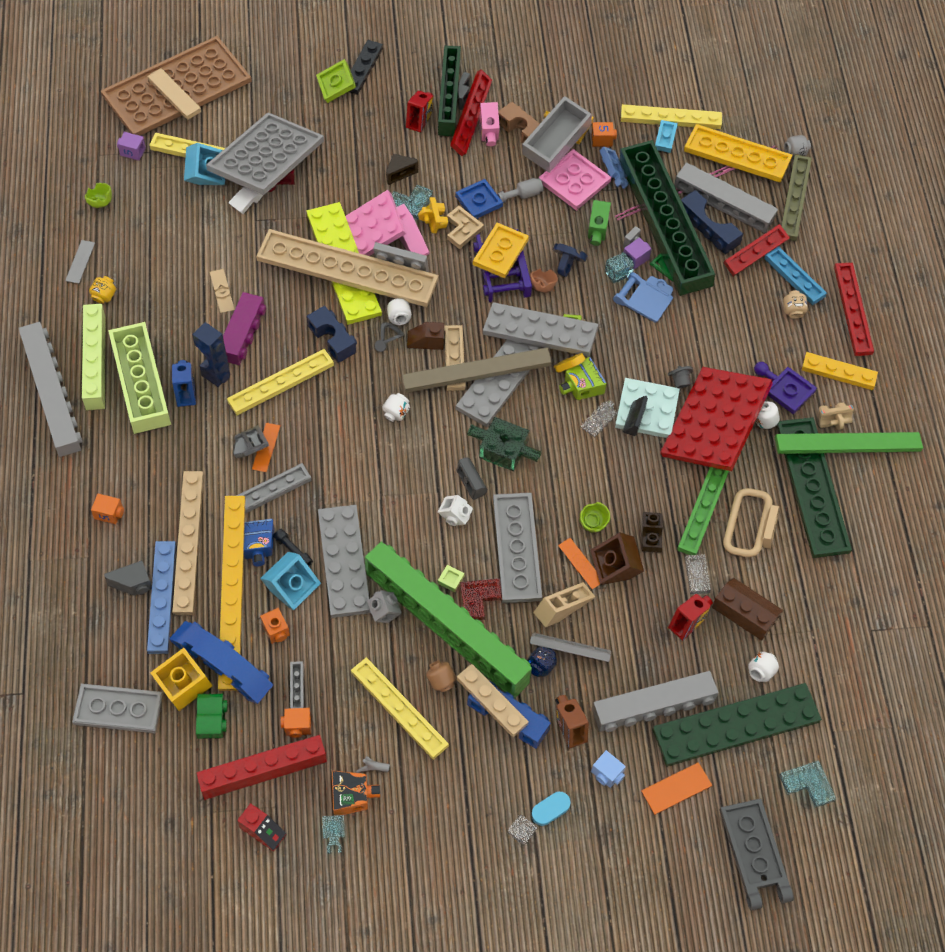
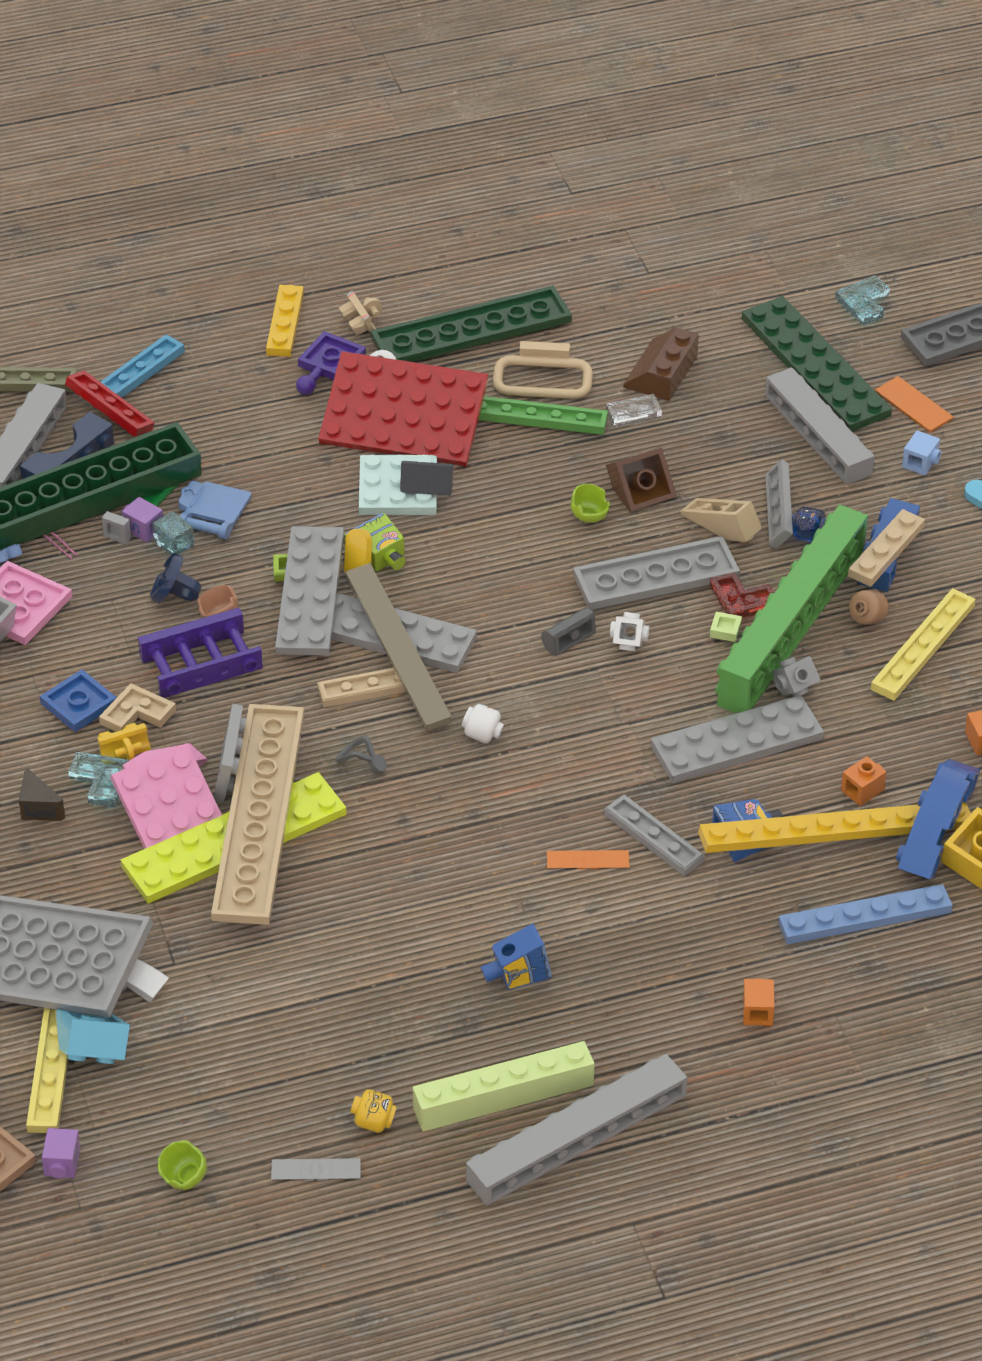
camera: 100 degrees left, 15 degrees down
(130, 579) = (854, 945): dark grey slope -> none
(139, 378) = (527, 1014): yellowish green brick -> none
(188, 543) = (765, 906): tan plate -> none
(211, 344) = (484, 887): dark blue arch -> none
(222, 290) = (323, 974): tan piece -> none
(242, 326) = (396, 922): magenta brick -> none
(249, 442) = (594, 868): flat silver slope -> none
(280, 382) = (477, 859): light yellow plate -> none
(283, 538) = (752, 777): black bar -> none
(291, 580) = (790, 781): medium azure slope -> none
(297, 684) = (939, 742): light grey piece -> none
(325, 322) = (389, 802): dark blue arch -> none
(399, 311) = (316, 749): white head -> none
(427, 336) = (350, 710): reddish brown slope -> none
(500, 250) = (189, 640): yellow plate -> none
(504, 443) = (507, 603): clear green brick -> none
(524, 189) = (49, 651): light grey piece -> none
(571, 721) = (878, 483): dark orange torso -> none
(580, 562) = (653, 517): orange piece -> none
(598, 222) = (101, 558): bright green torso -> none
(599, 418) = (435, 526): clear hinge -> none
(652, 532) = (579, 460): dark brown slope -> none
(681, 376) = (342, 452): dark grey piece -> none
(695, 611) = (698, 403): red torso -> none
(763, 667) = (737, 343): white head -> none
(795, 304) = (193, 361): tan head -> none
(848, 442) = (401, 298): bright green tile -> none
(853, 309) = (182, 312): red plate -> none

